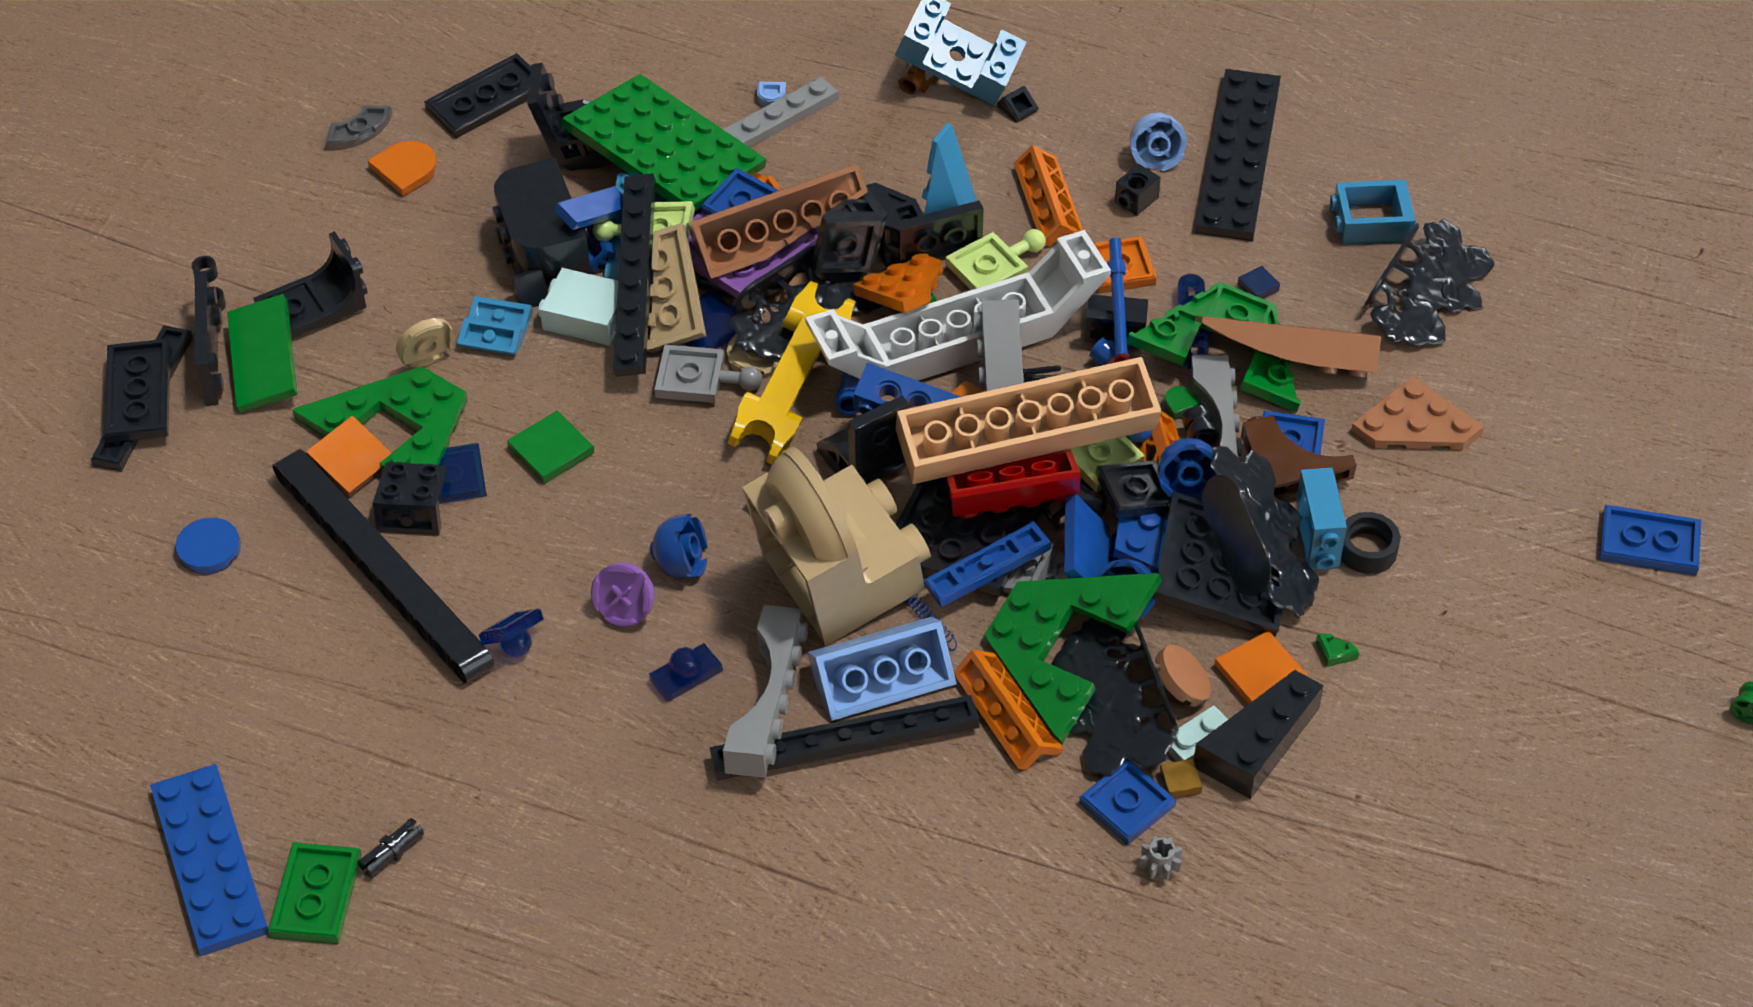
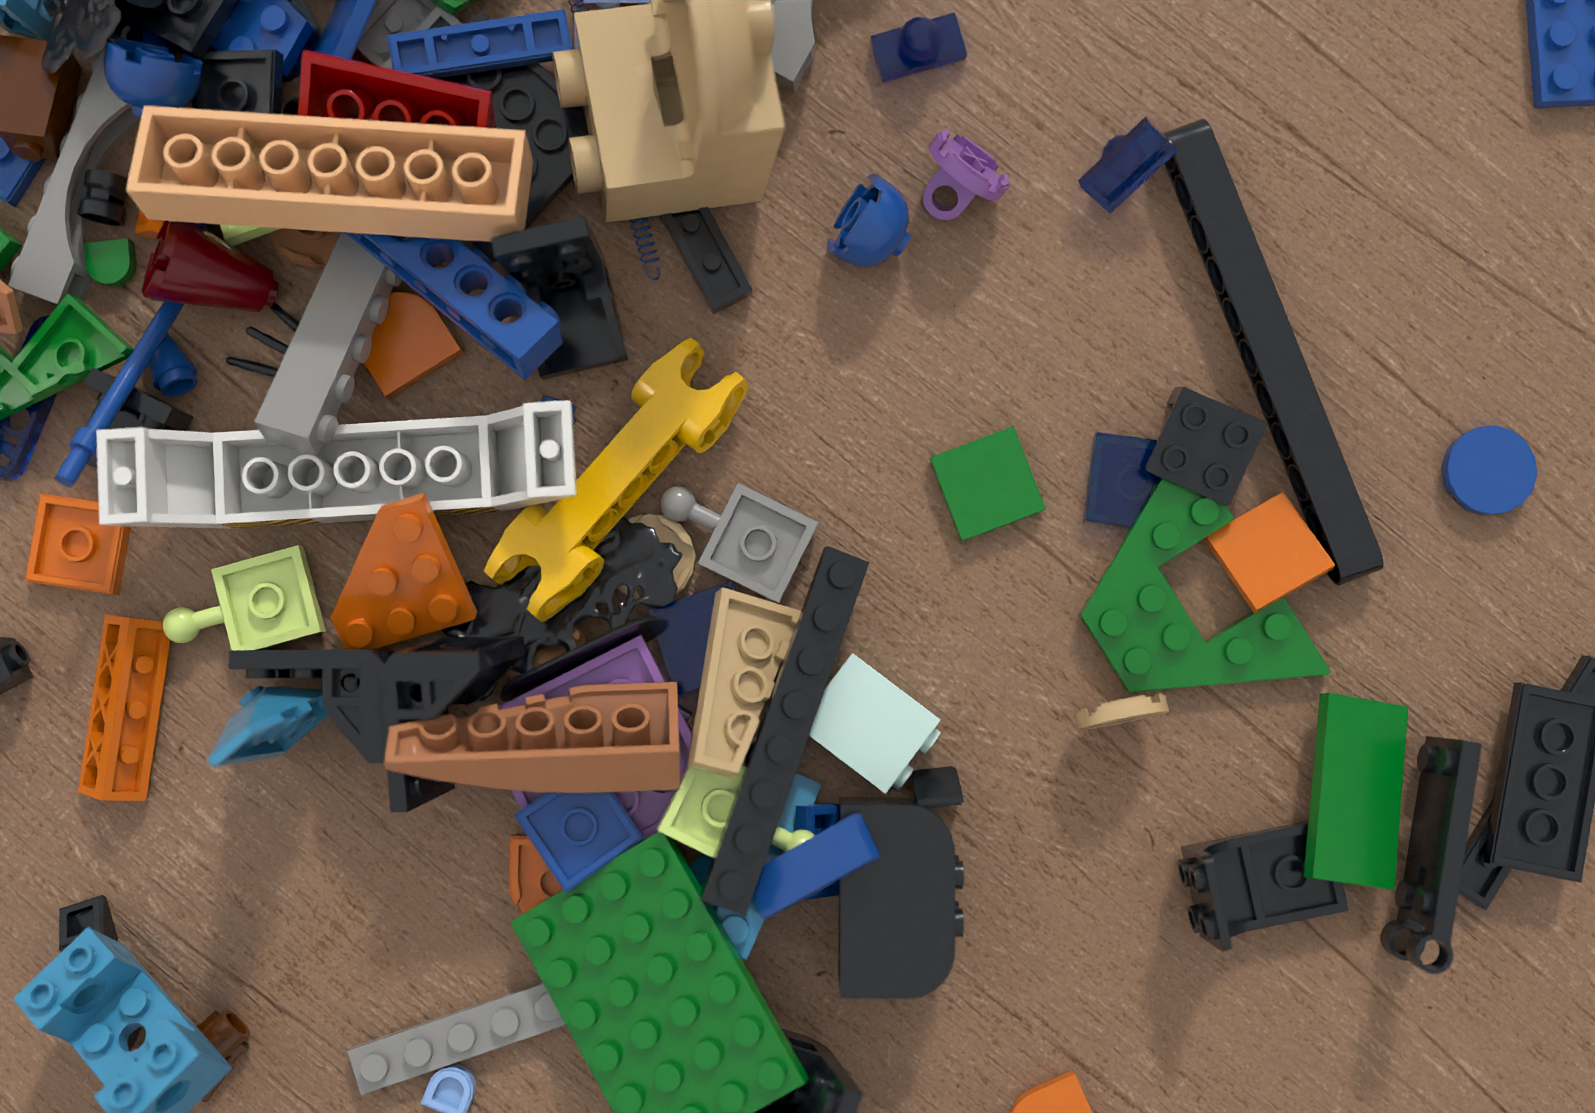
camera: 155 degrees left, 35 degrees up
(495, 326) = (1006, 738): dark azure slope -> none

